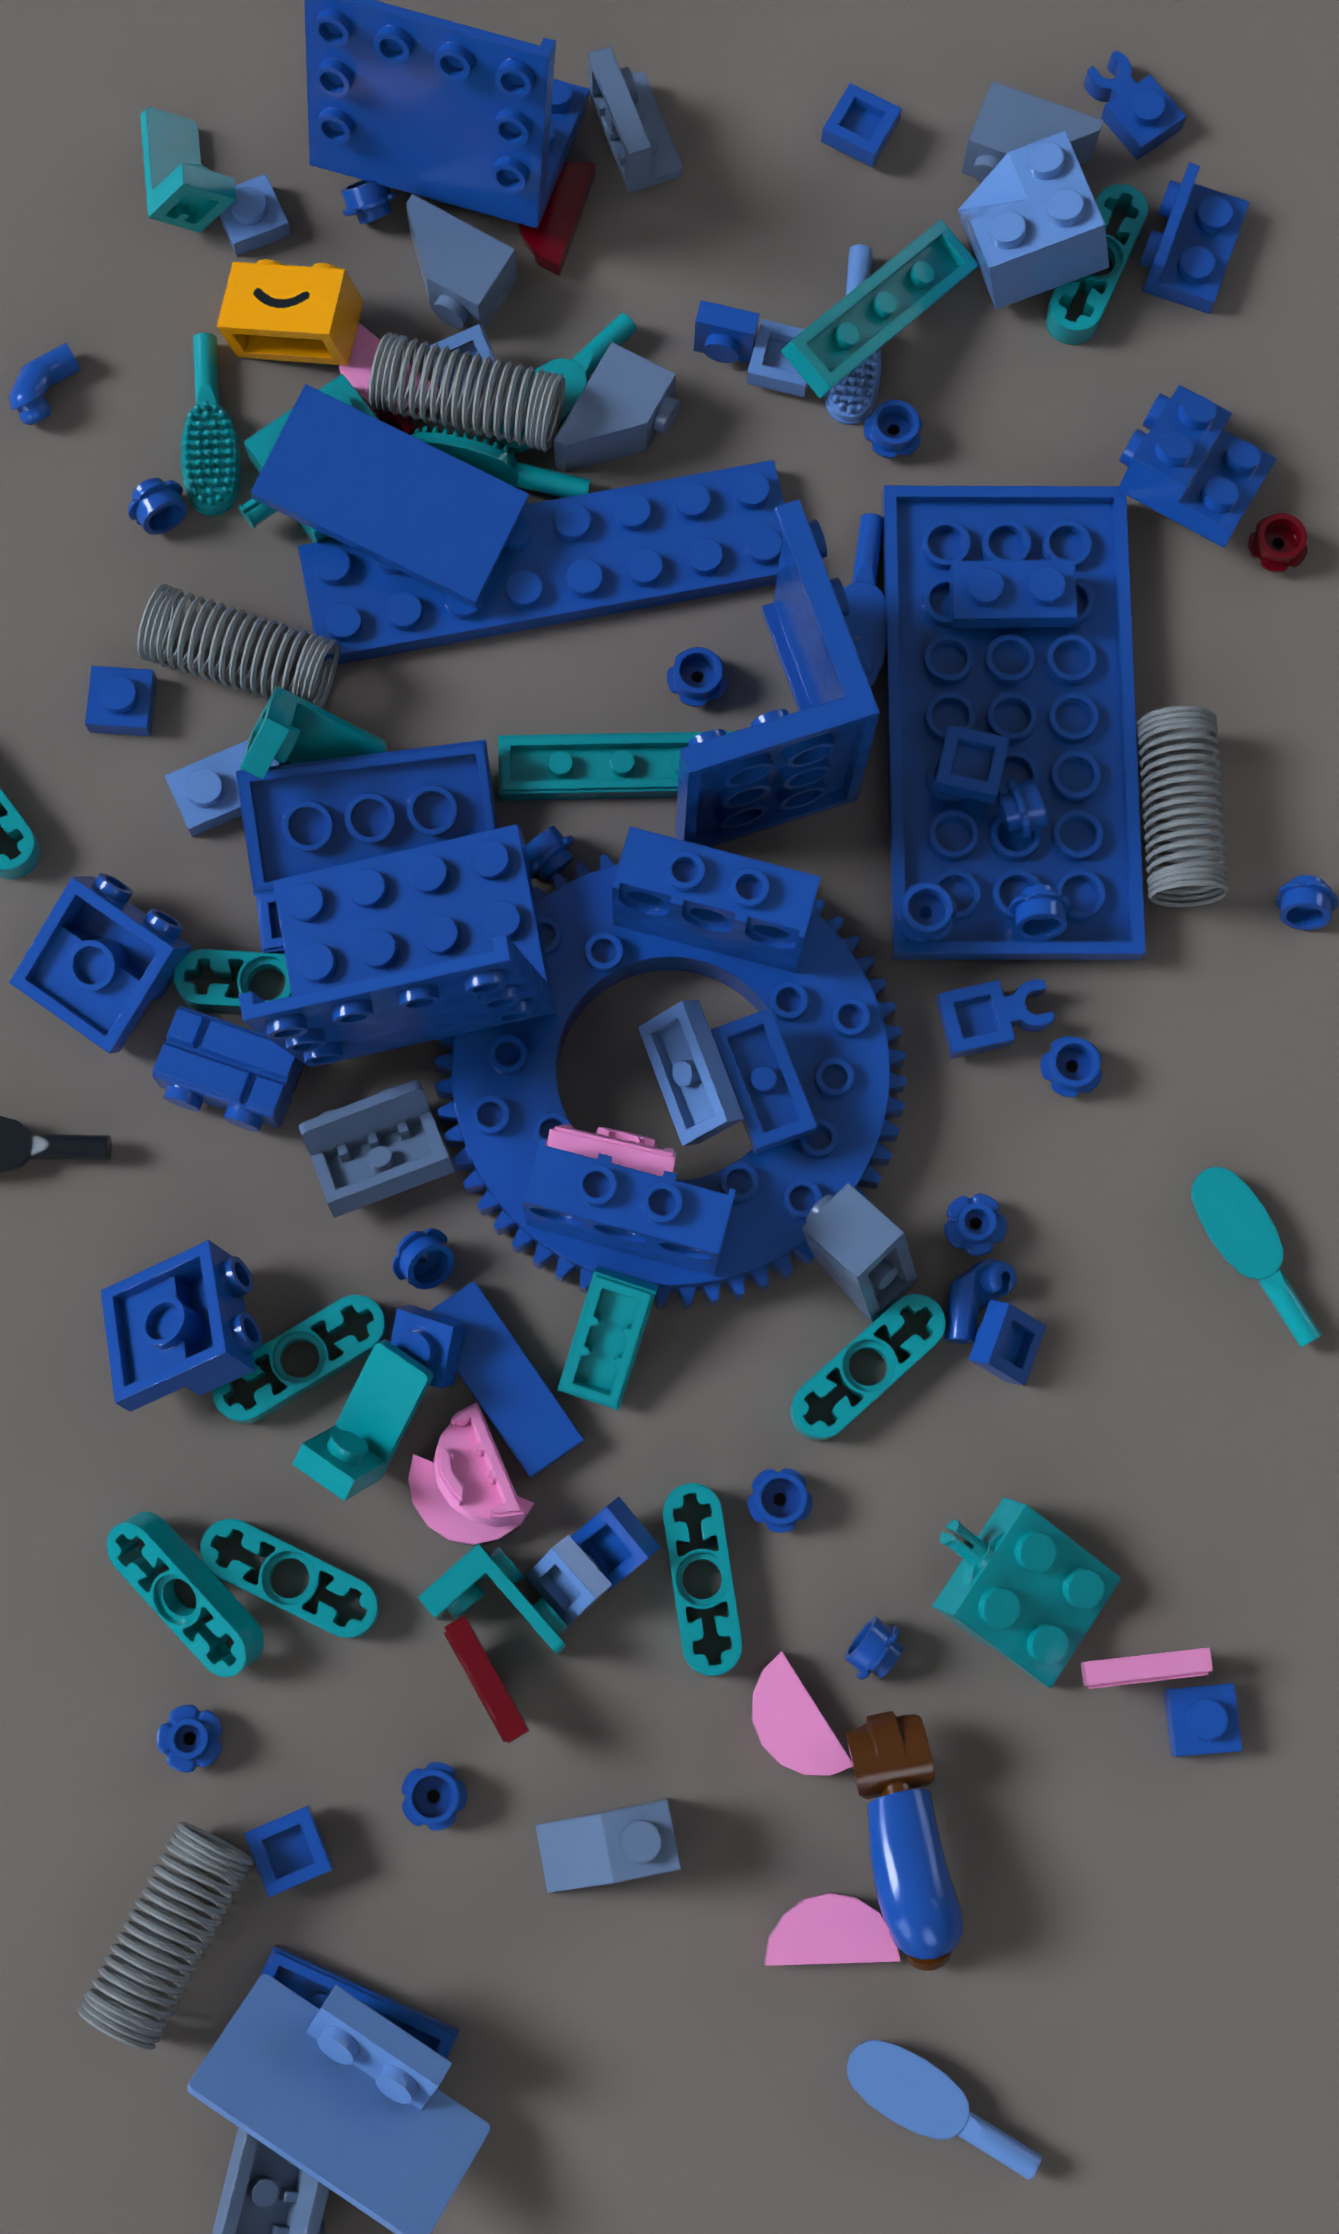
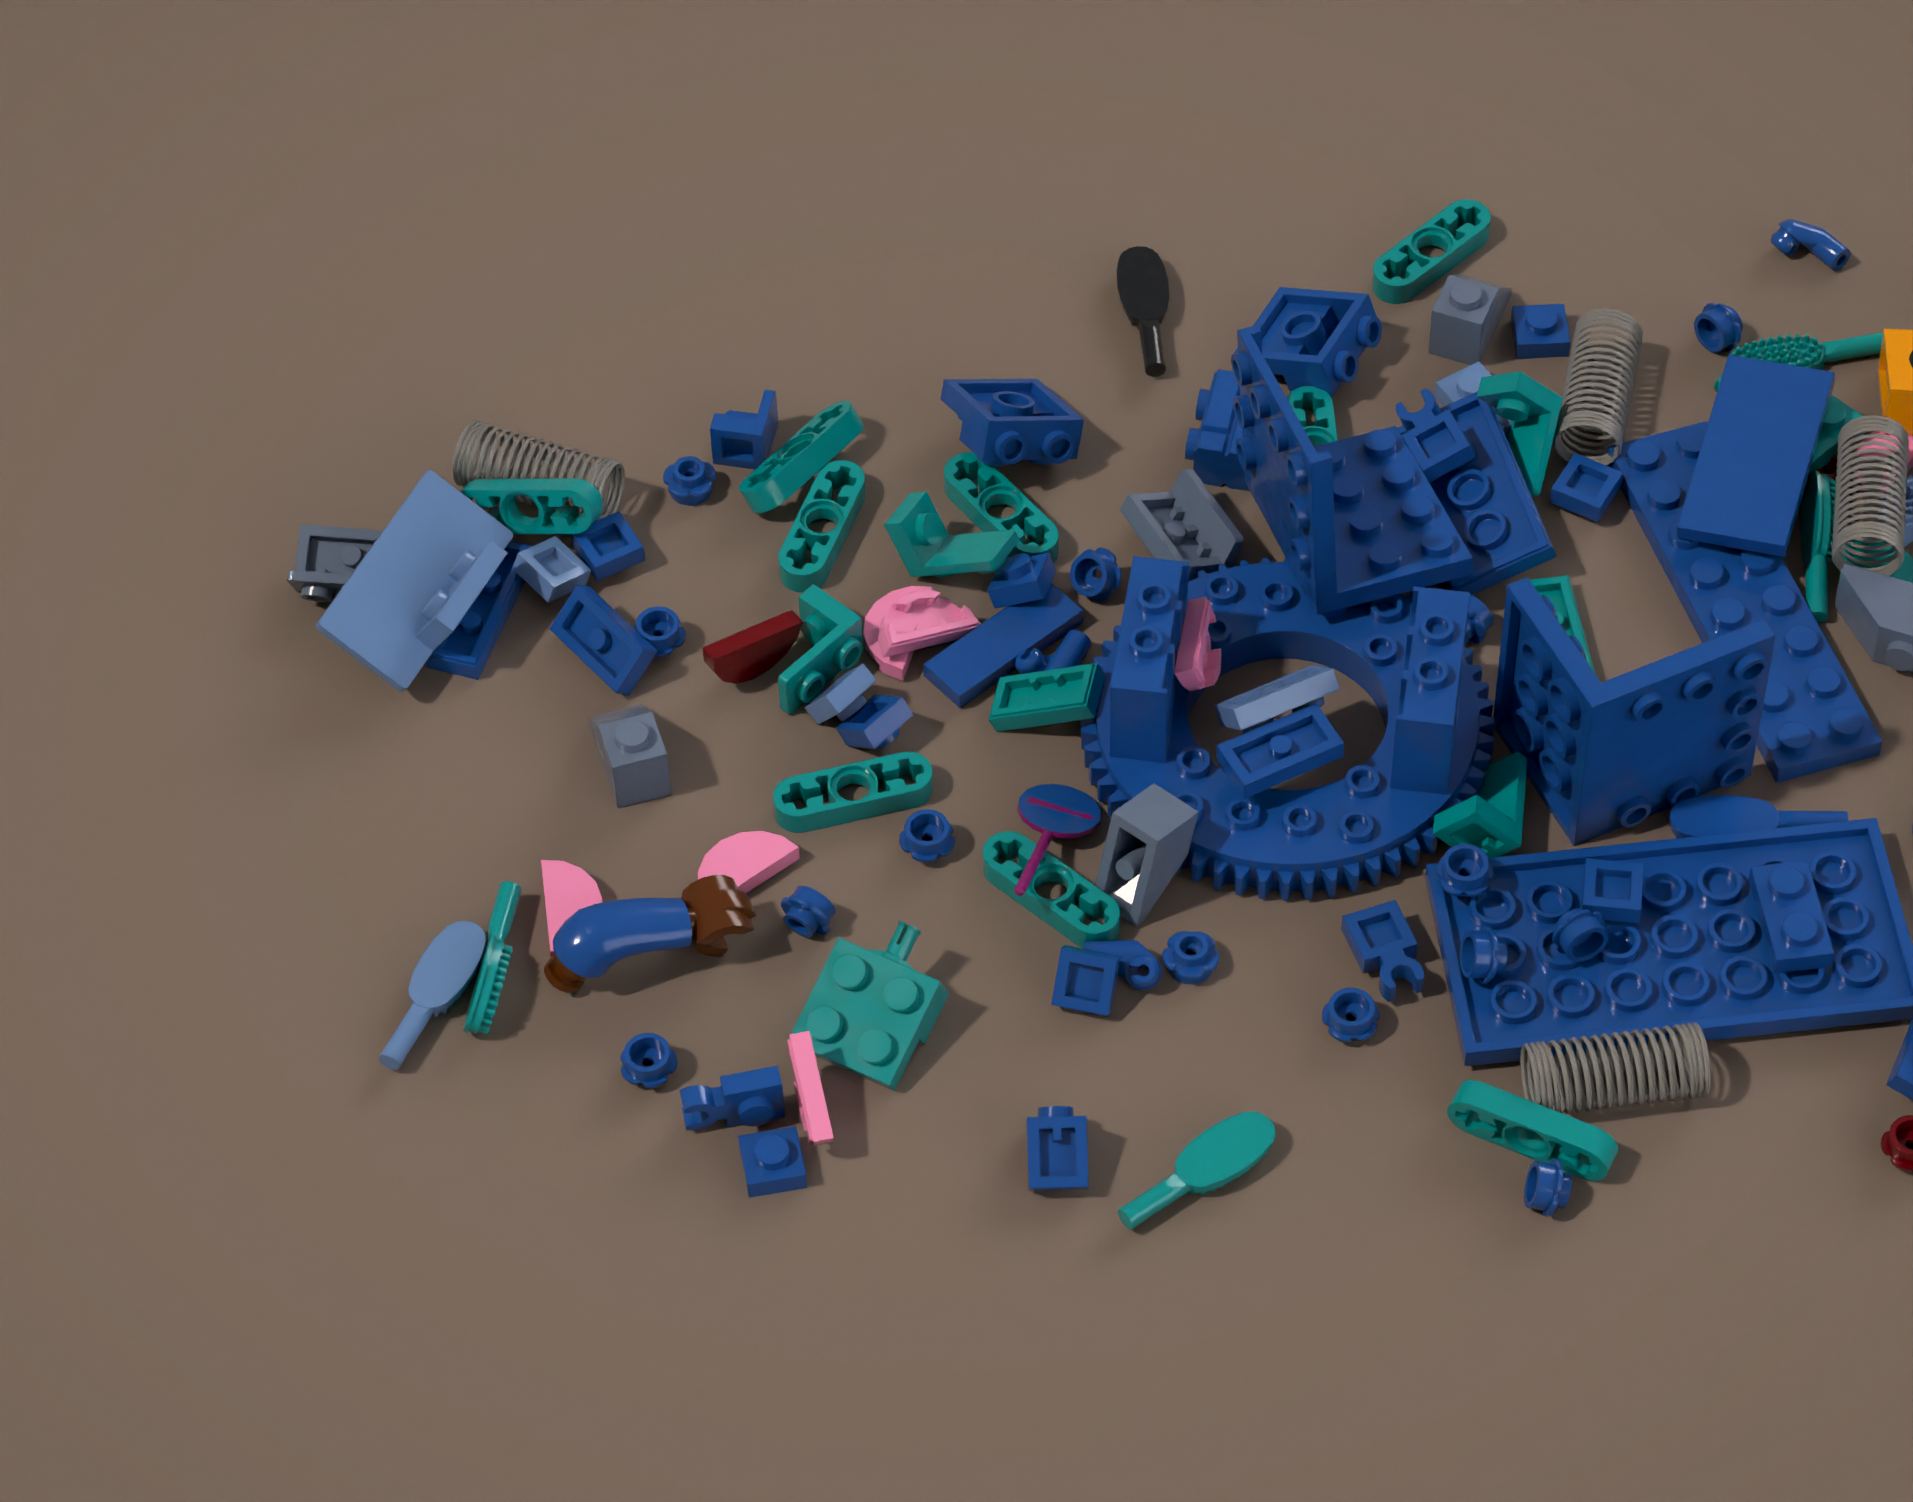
camera: 90 degrees right, 25 degrees down
(89, 772) = (1466, 317): none -> sand blue slope
(128, 1662) = (745, 437): none -> blue panel
(226, 1952) = (546, 495): none -> teal beam
(309, 838) = (1434, 438): none -> blue plate
(319, 1926) = (551, 569): none -> medium blue plate
(375, 692) = (1586, 487): none -> blue plate
(442, 1867) = (603, 640): none -> blue plate
(547, 1324) = (1068, 654): none -> blue arm
(766, 1343) = (1054, 812): none -> blue piece
(847, 868) = (1493, 815): none -> teal bracket
(920, 2038) = (494, 962): none -> teal piece
(1079, 1853) = (643, 1049): none -> blue plate
(1135, 1740) = (742, 1099): none -> blue plate
(1222, 1401) = (1057, 1150): none -> blue bracket
(1240, 904) = (1532, 1130): none -> teal beam

